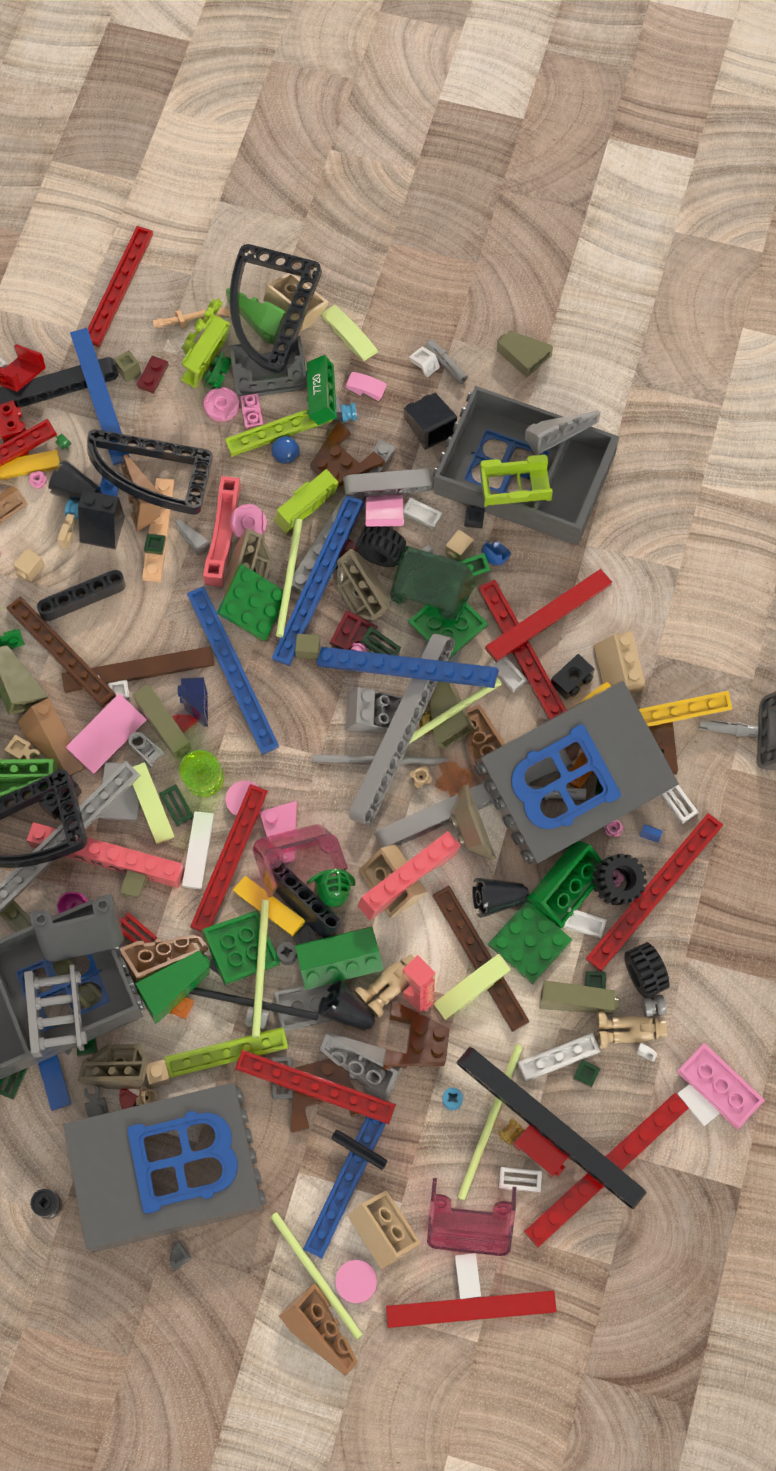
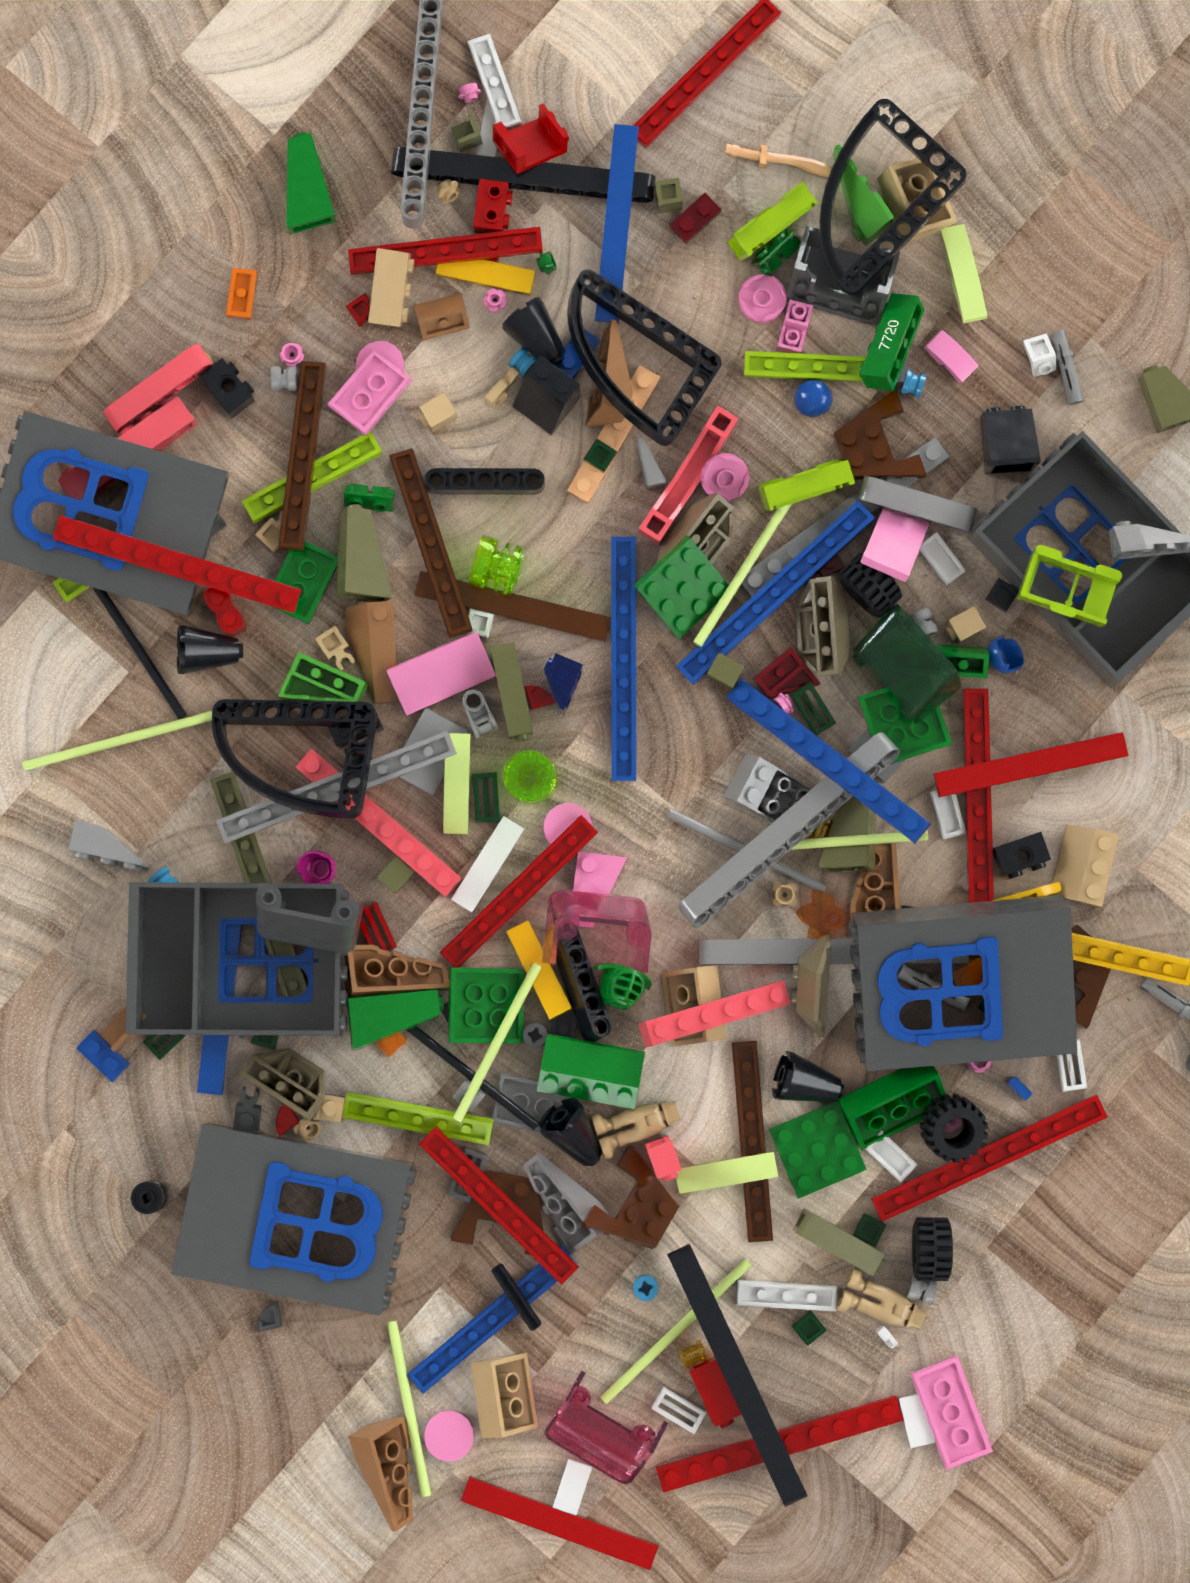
camera: 25 degrees right, 15 degrees up
(35, 1003) = (218, 1005): light grey fence -> none
(113, 643) = (496, 565): none -> clear neon green wheel
(213, 307) = (785, 178): lime plant -> none

